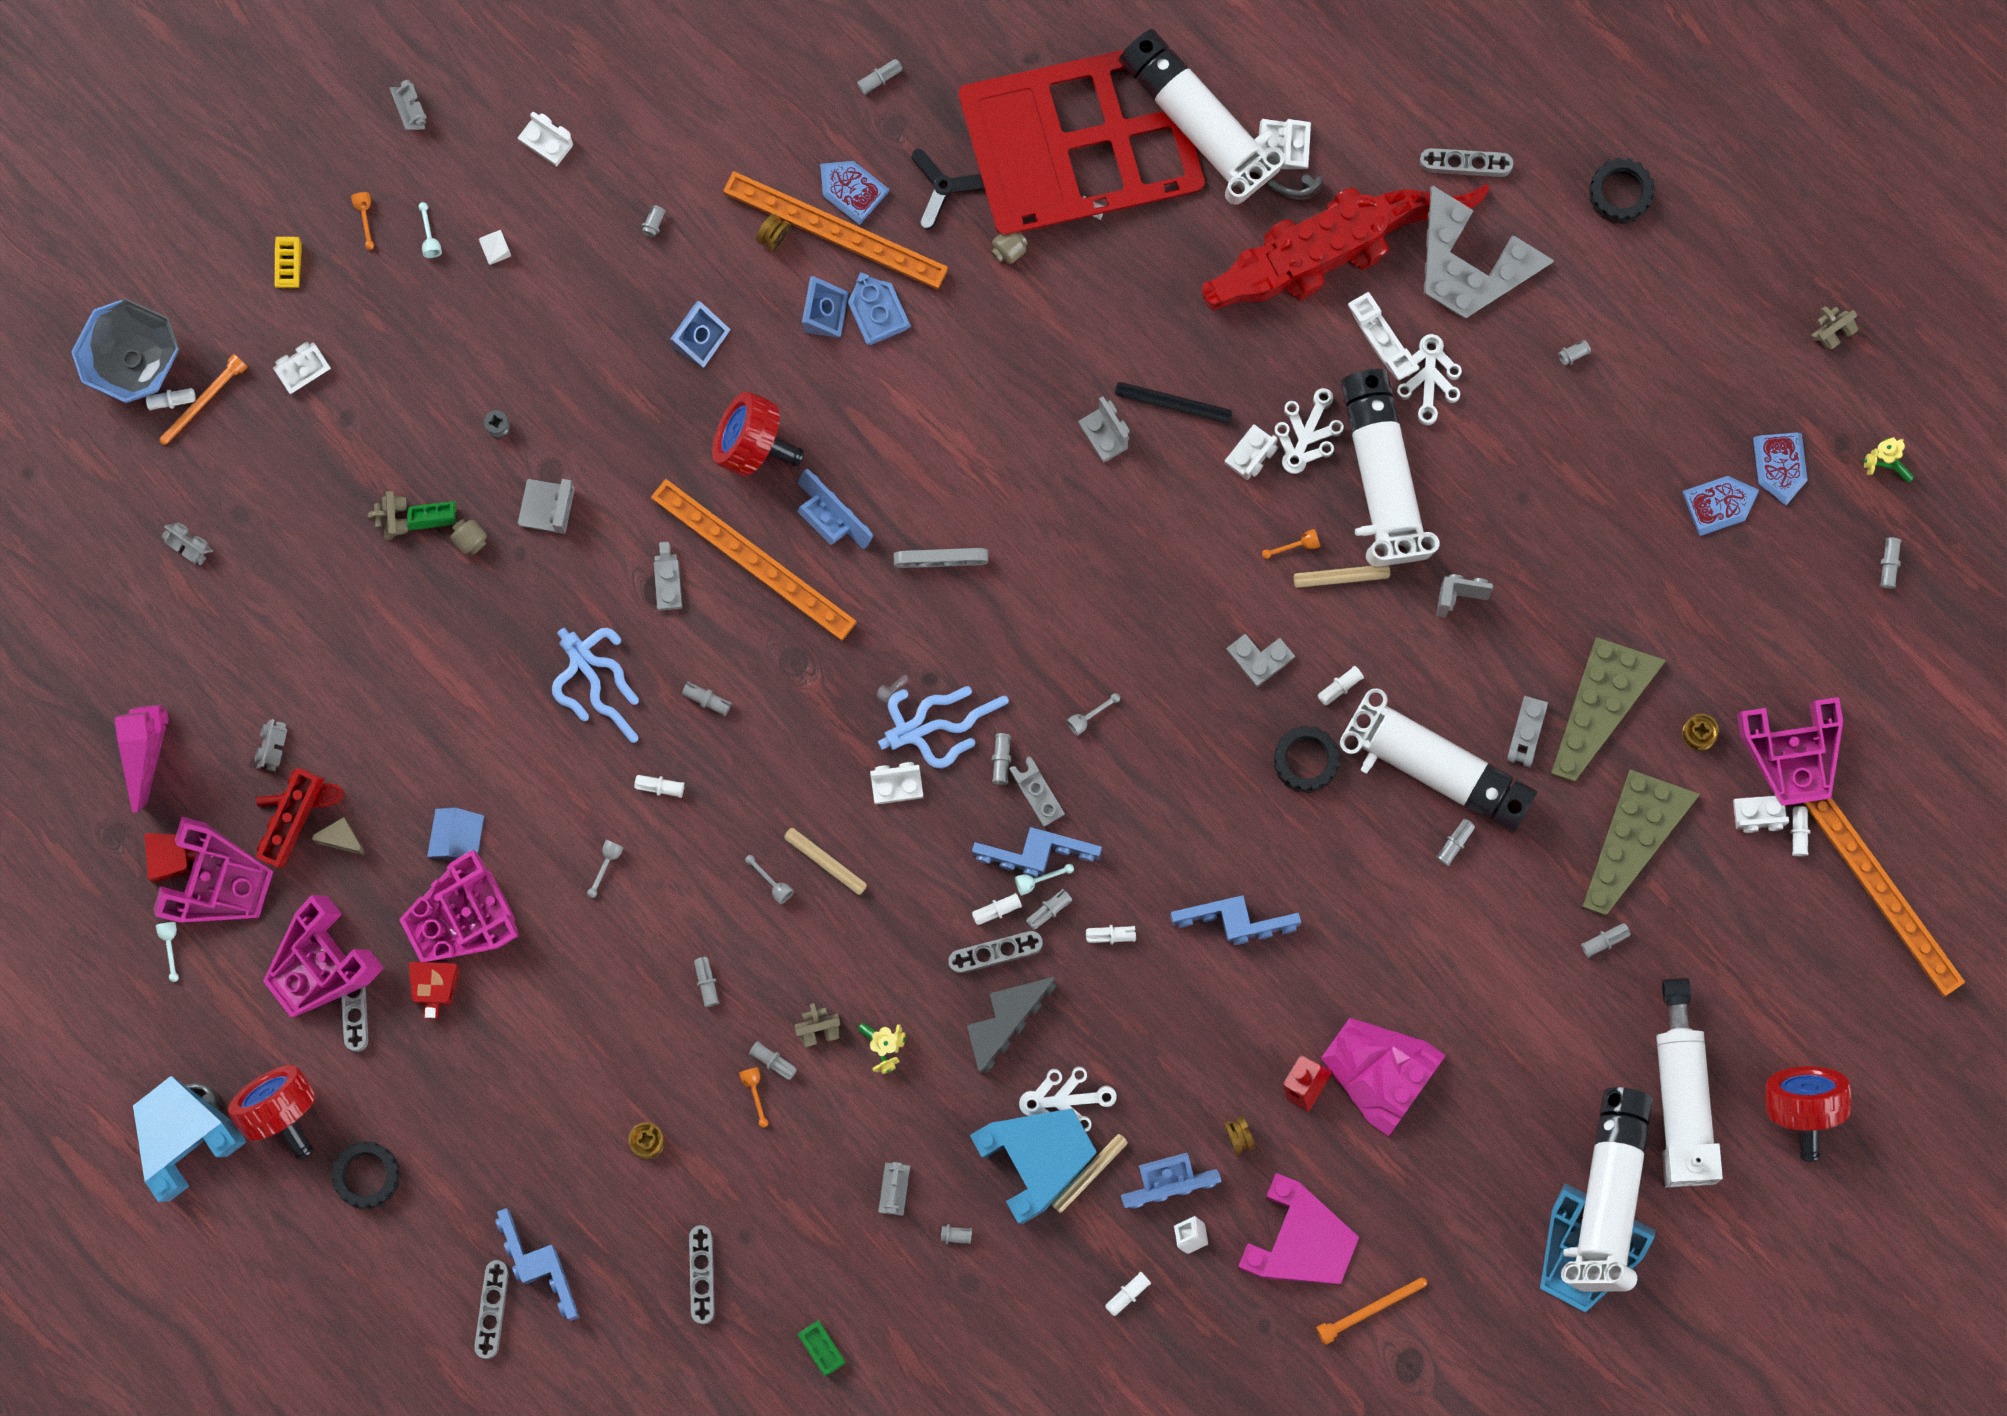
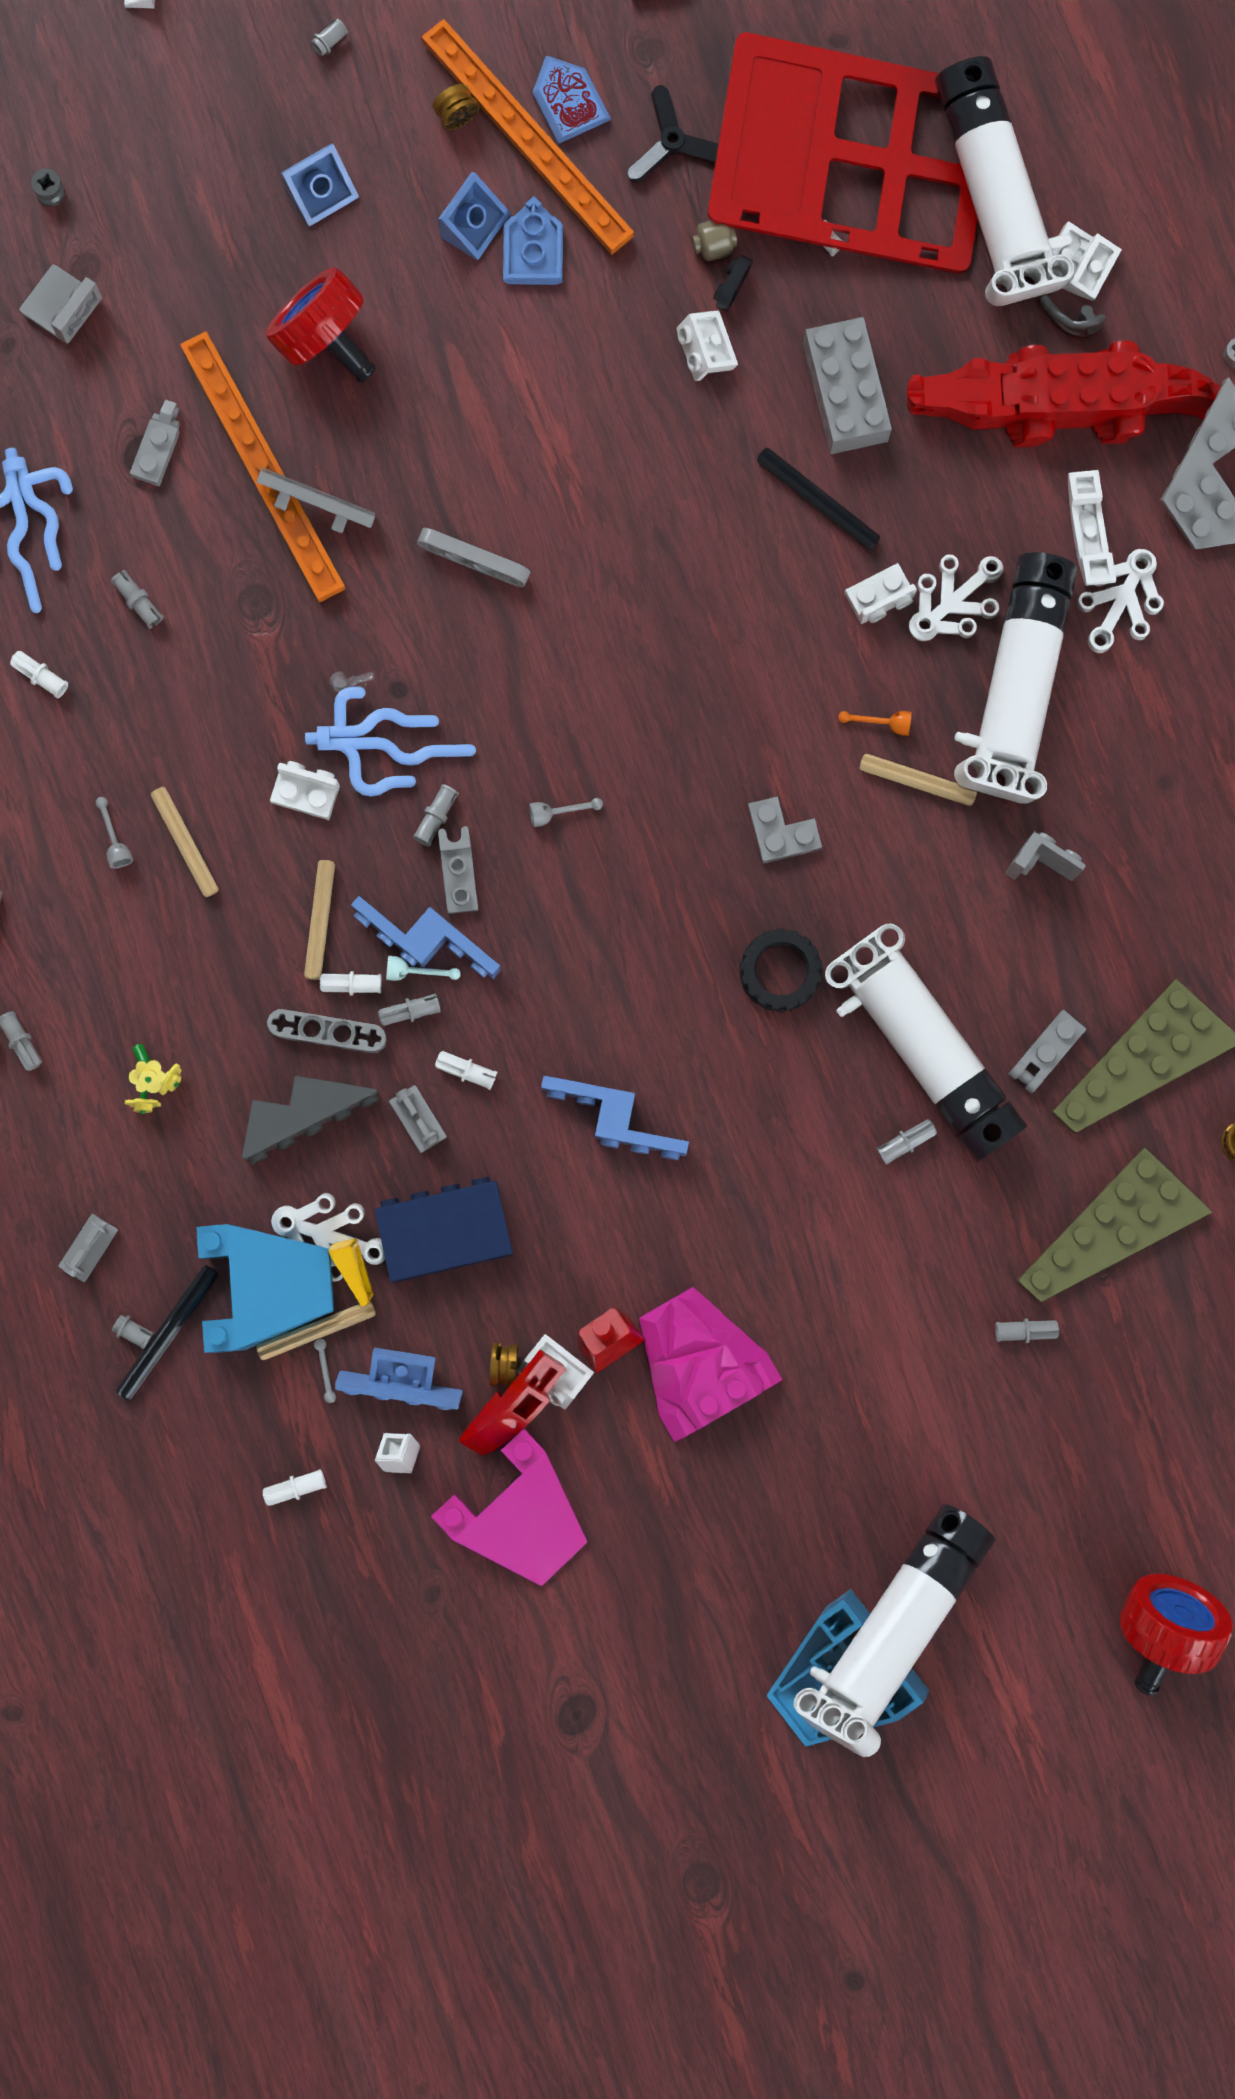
camera: 15 degrees right, 5 degrees up
(807, 1029) = (73, 1024): dark tan hips -> none
(828, 565) = (289, 487): none -> light grey hinge
(829, 514) = (369, 452): medium blue bracket -> none
(951, 873) = (319, 920): none -> tan axle
(981, 1224) = (167, 1332): none -> black axle
(1036, 281) = (738, 272): none -> black plate
(1038, 326) = (706, 344): none -> white bracket
(1091, 986) = (417, 1118): none -> light grey hinge
(1091, 1110) = (351, 1265): none -> yellow slope
(1097, 1183) = (320, 1345): none -> light grey hinge
(1105, 431) = (724, 496): light grey bracket -> none
(1149, 1057) = (443, 1230): none -> dark blue panel
(1156, 311) = (847, 385): none -> light grey brick
(1264, 1159) = (511, 1412): none -> red slope
(1278, 1124) = (572, 1379): none -> white bracket
(1329, 1331) = (502, 1635): orange piece -> none
(1340, 686) = (858, 904): white axle -> none
(1690, 1147) = (1035, 1554): white piece -> none

